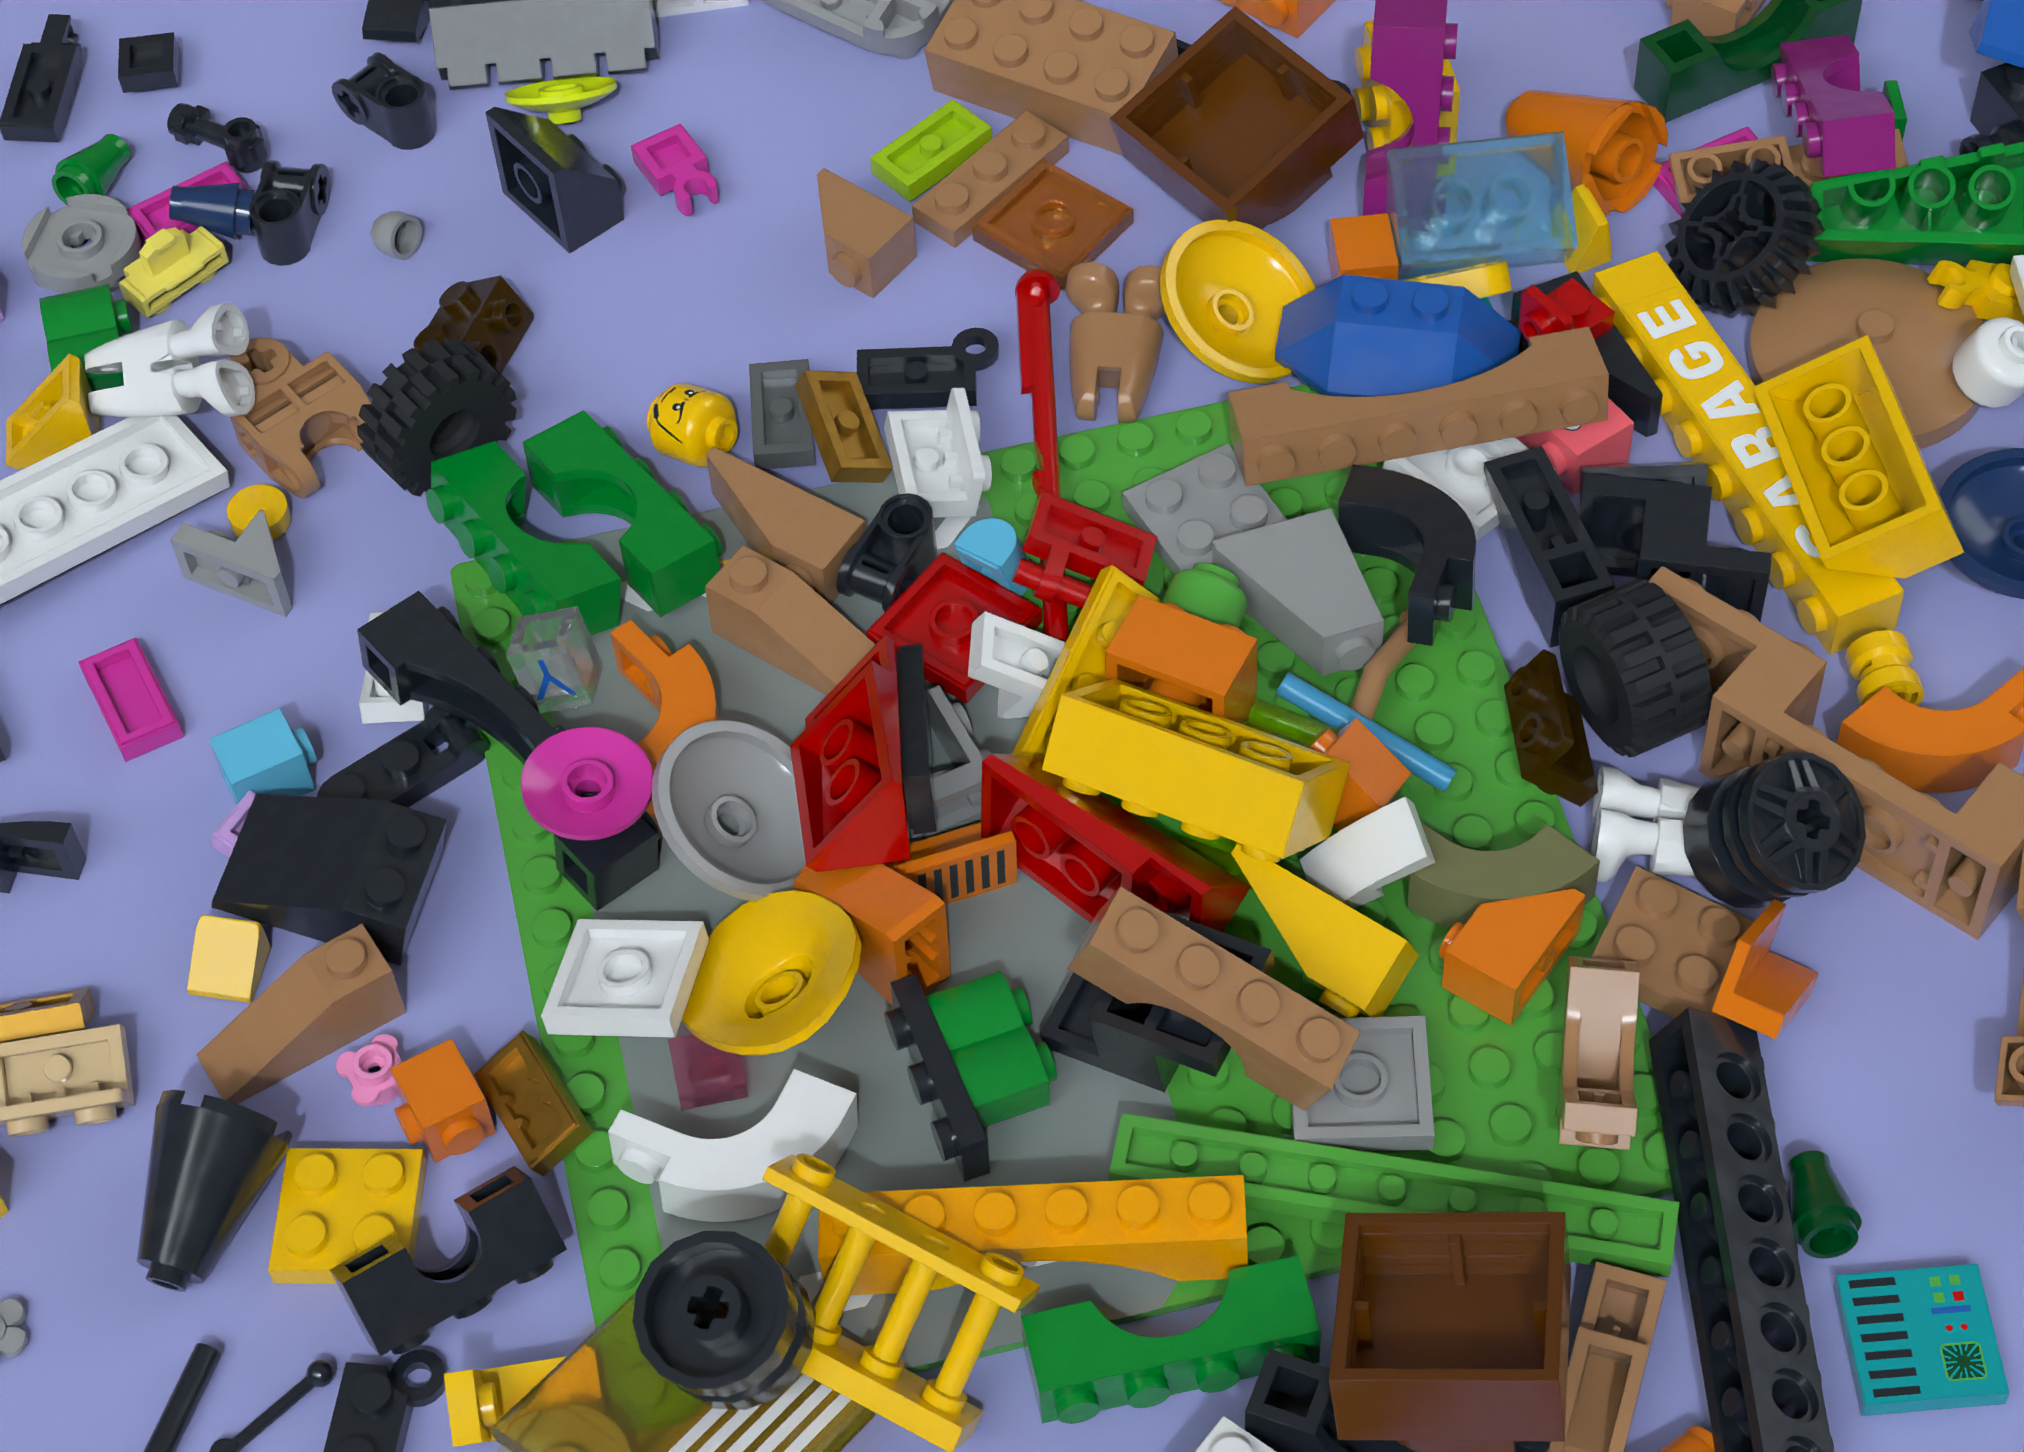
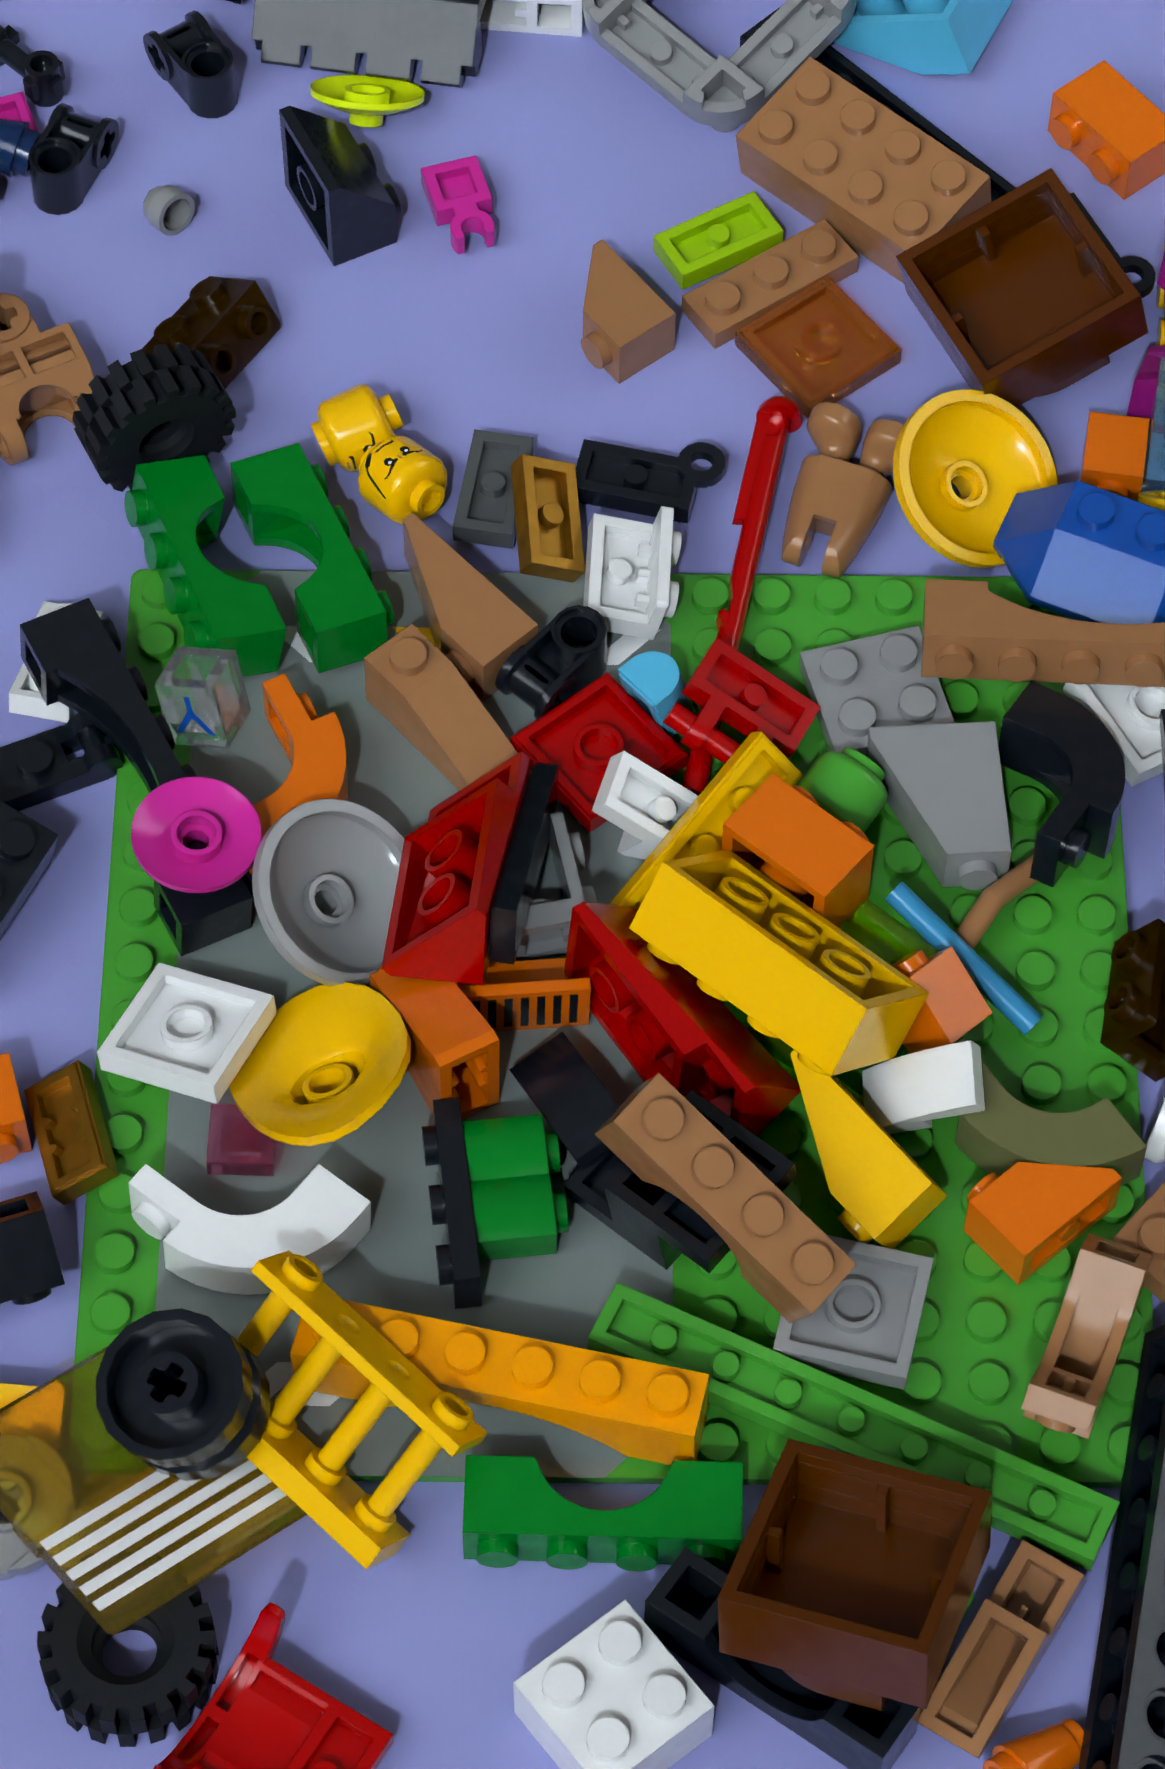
camera: 10 degrees right, 5 degrees up
(630, 384) = (353, 424): none -> yellow head
(1023, 949) = (567, 1096): none -> black slope

